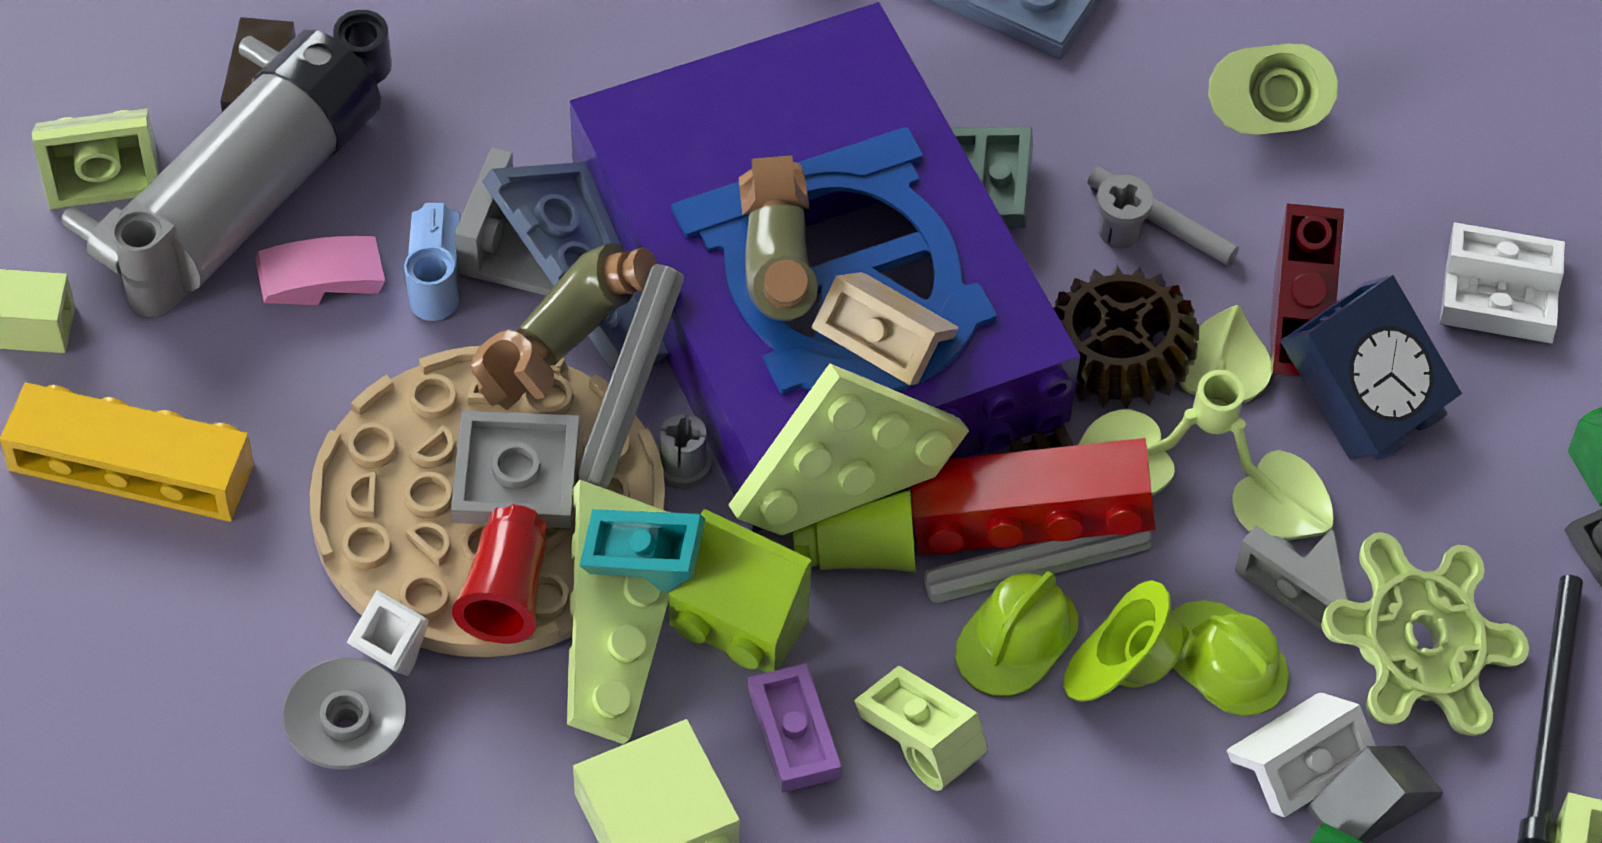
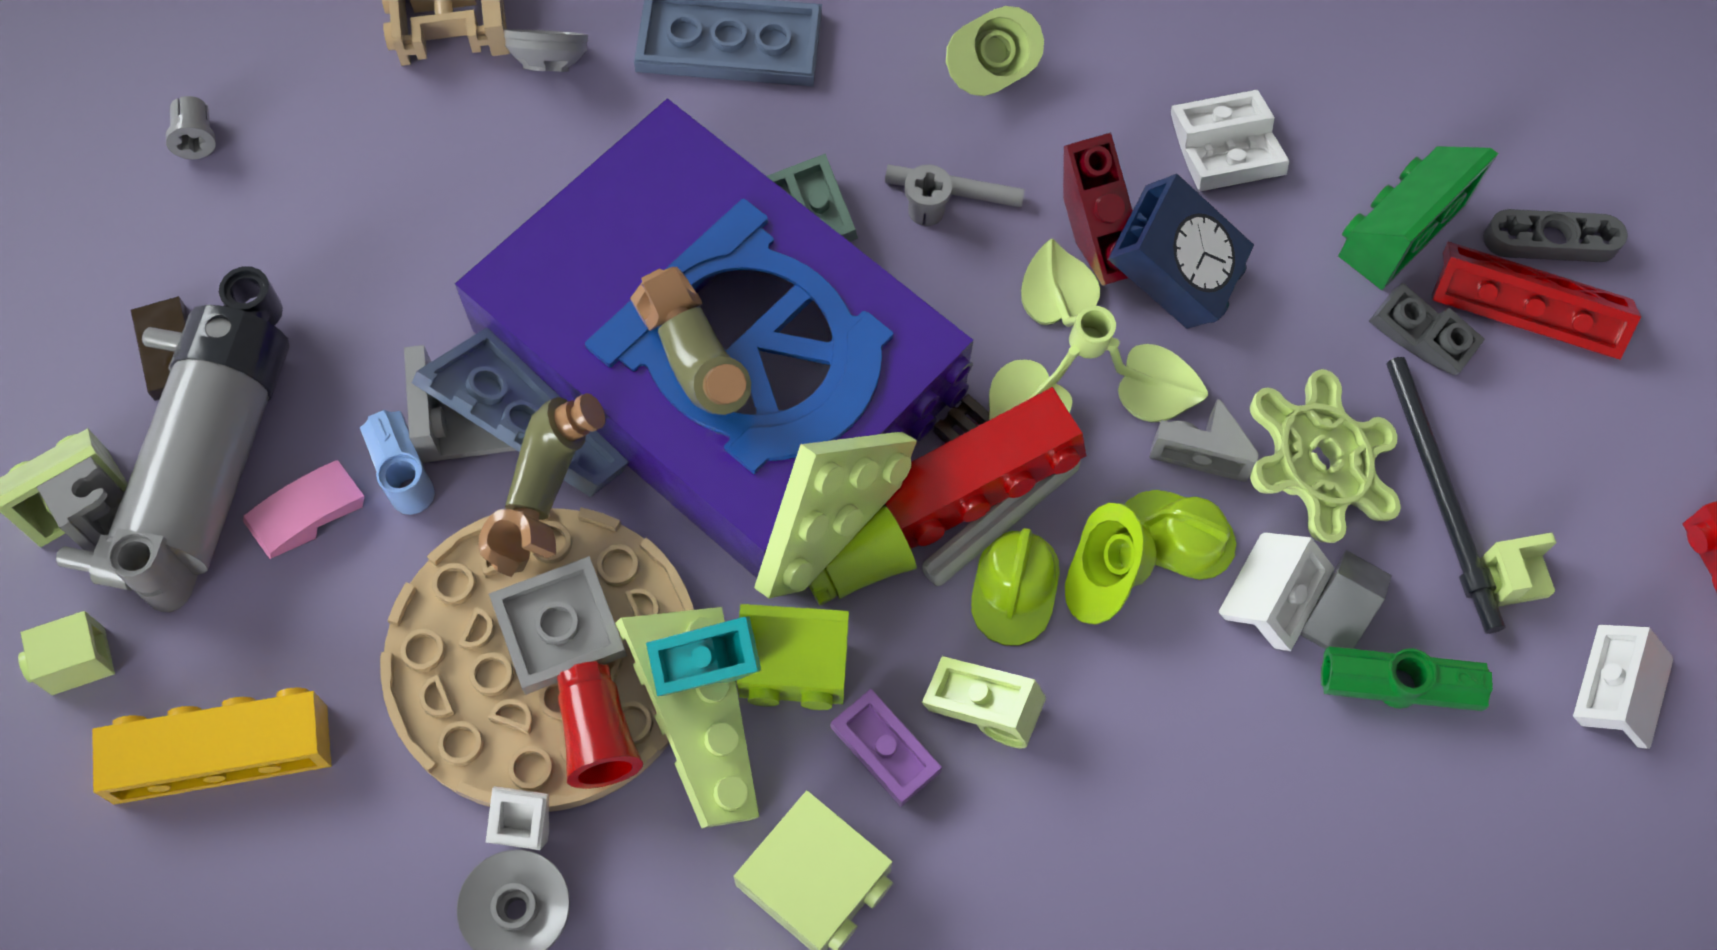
camera: 25 degrees left, 10 degrees up
(113, 169) = (83, 502): none -> light grey hinge
(630, 376) = (618, 507): light grey axle -> none
(695, 453) = (696, 550): light grey bush -> none
(882, 325) = (812, 382): tan panel -> none
(1124, 318) = (969, 278): dark brown gear -> none

